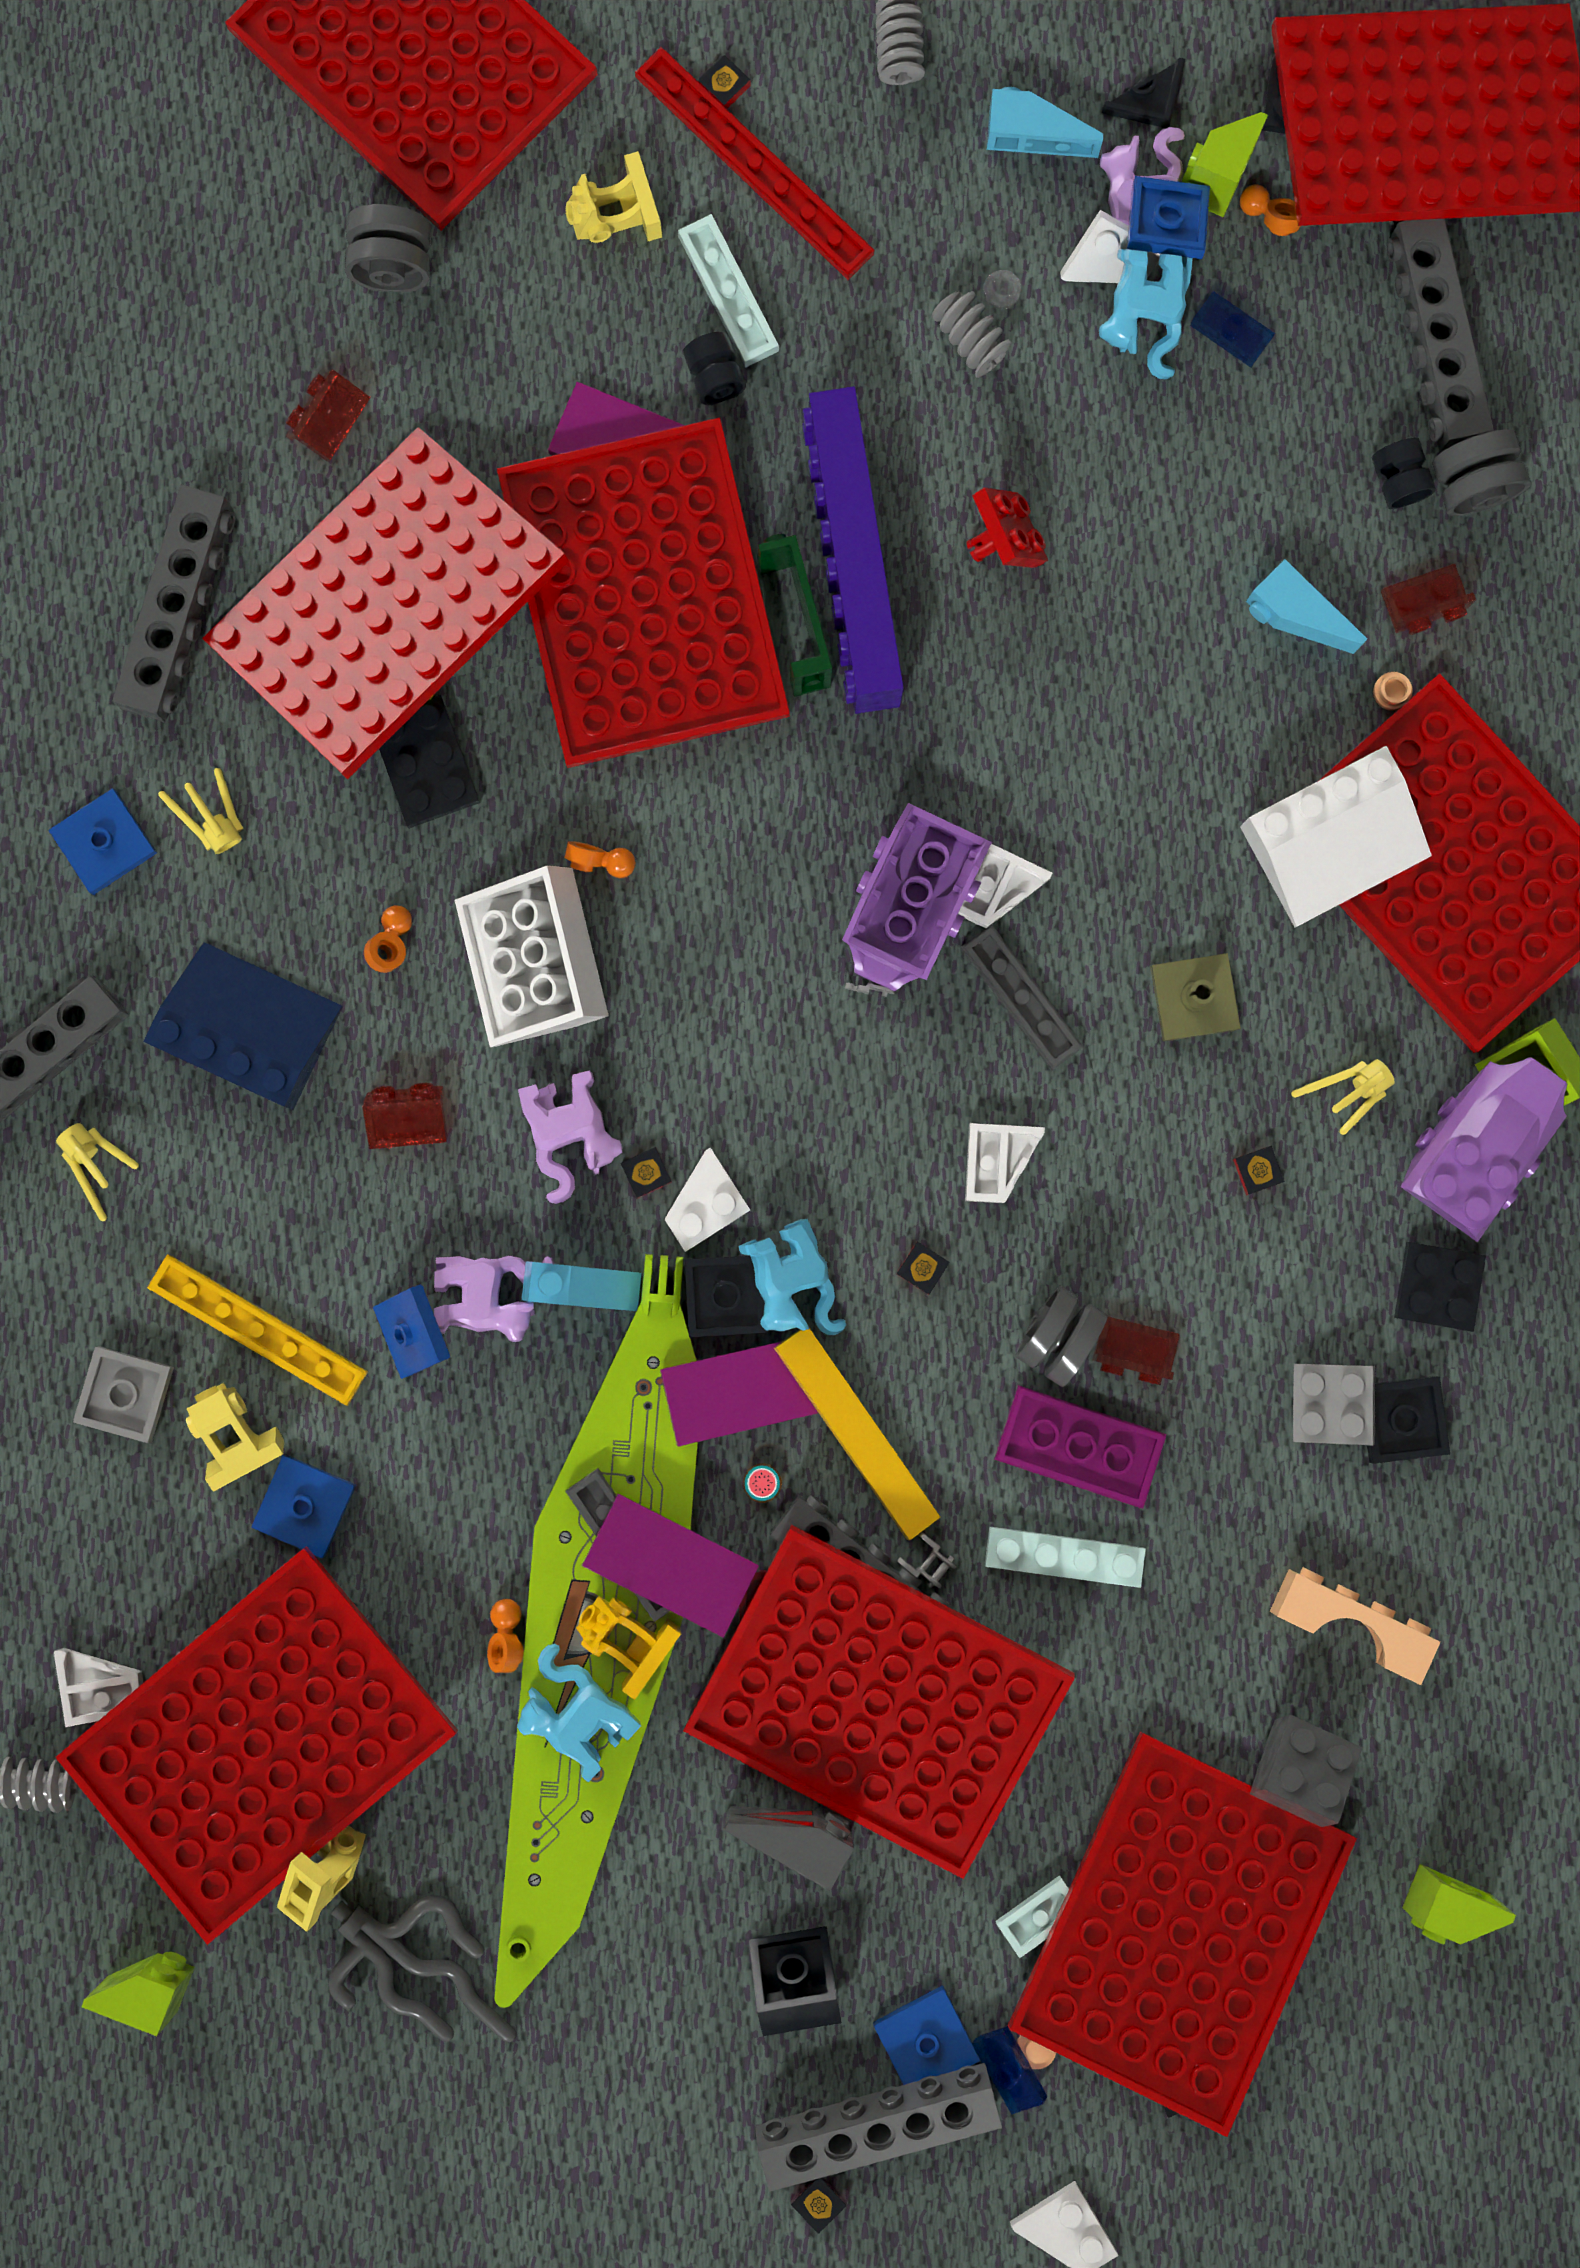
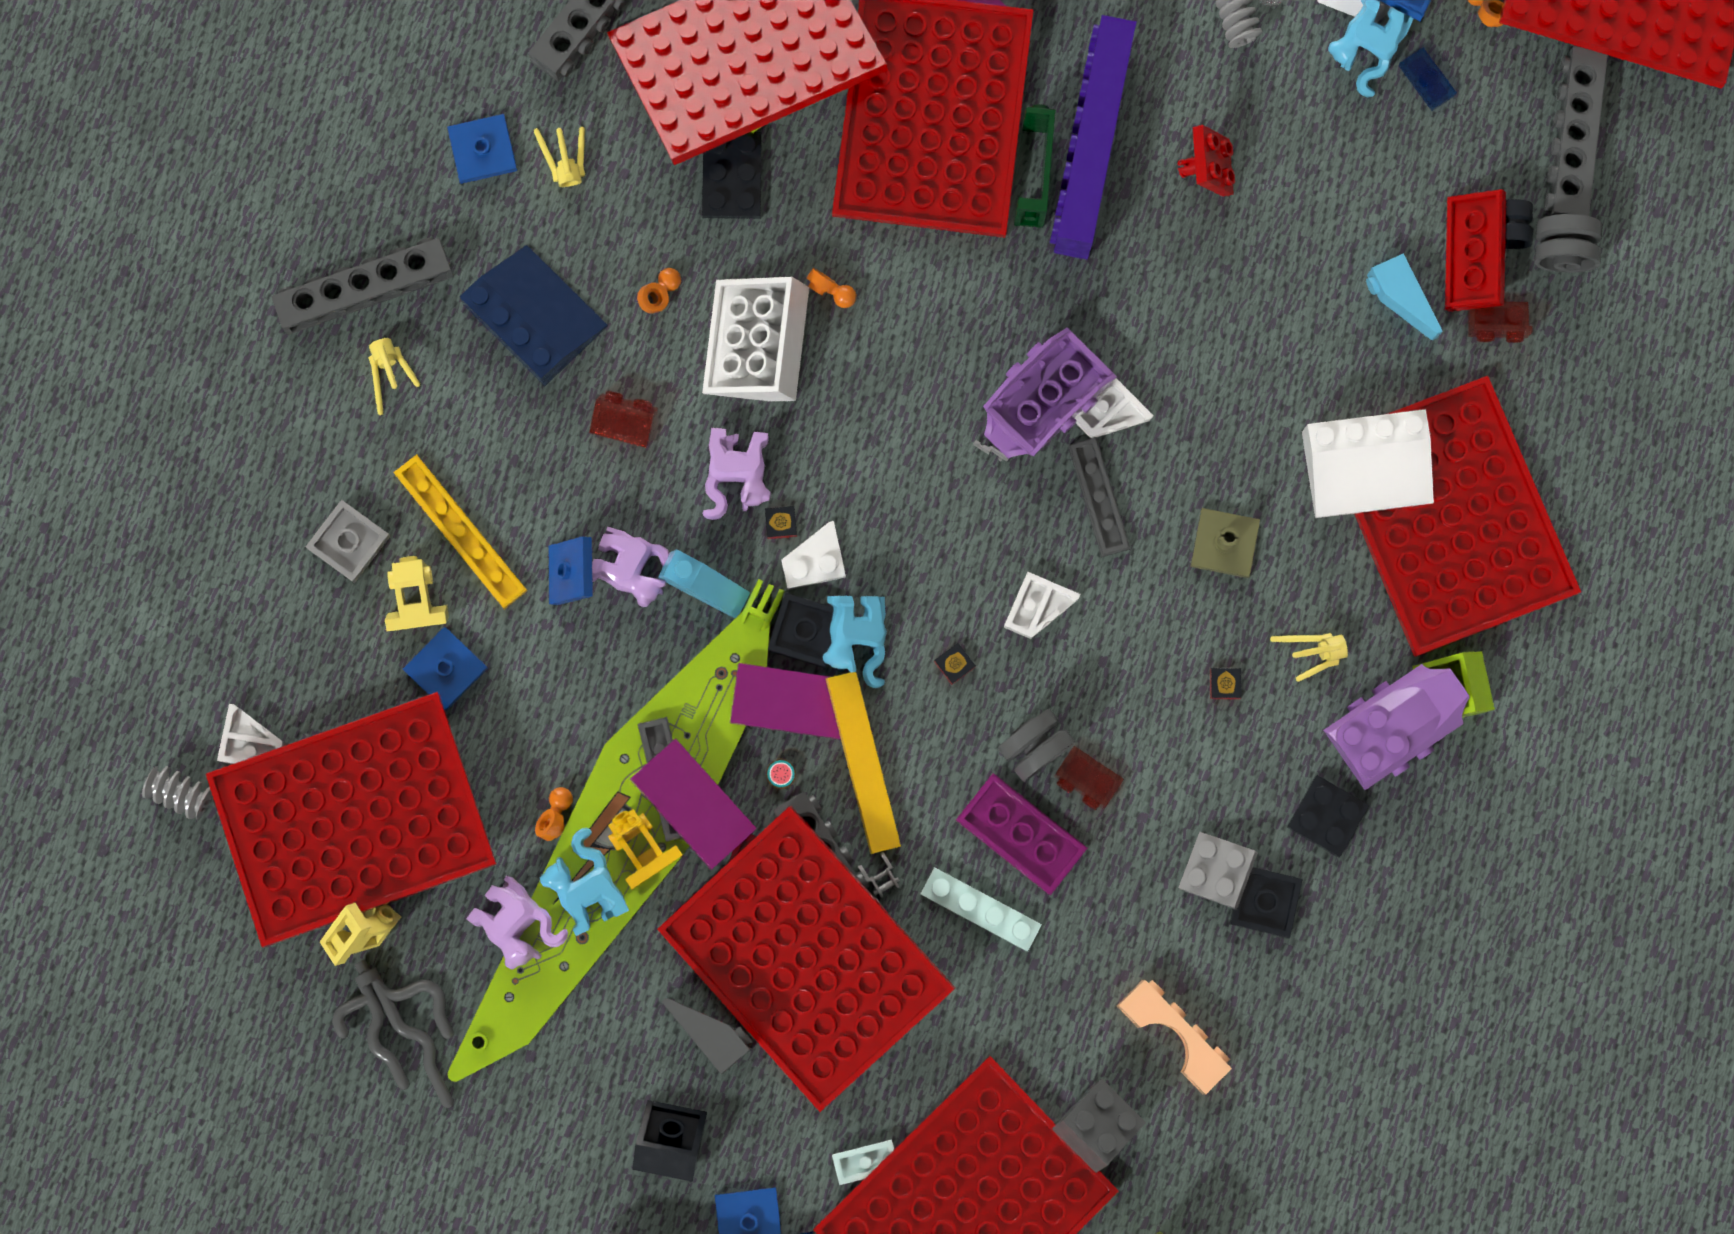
camera: 20 degrees right, 5 degrees down
(143, 1993) = (203, 967): lime slope -> none
(504, 1784) = (512, 920): none -> lavender animal
(1370, 523) = (1475, 250): none -> red tile
(1392, 690) = (1449, 376): light nougat plate -> none

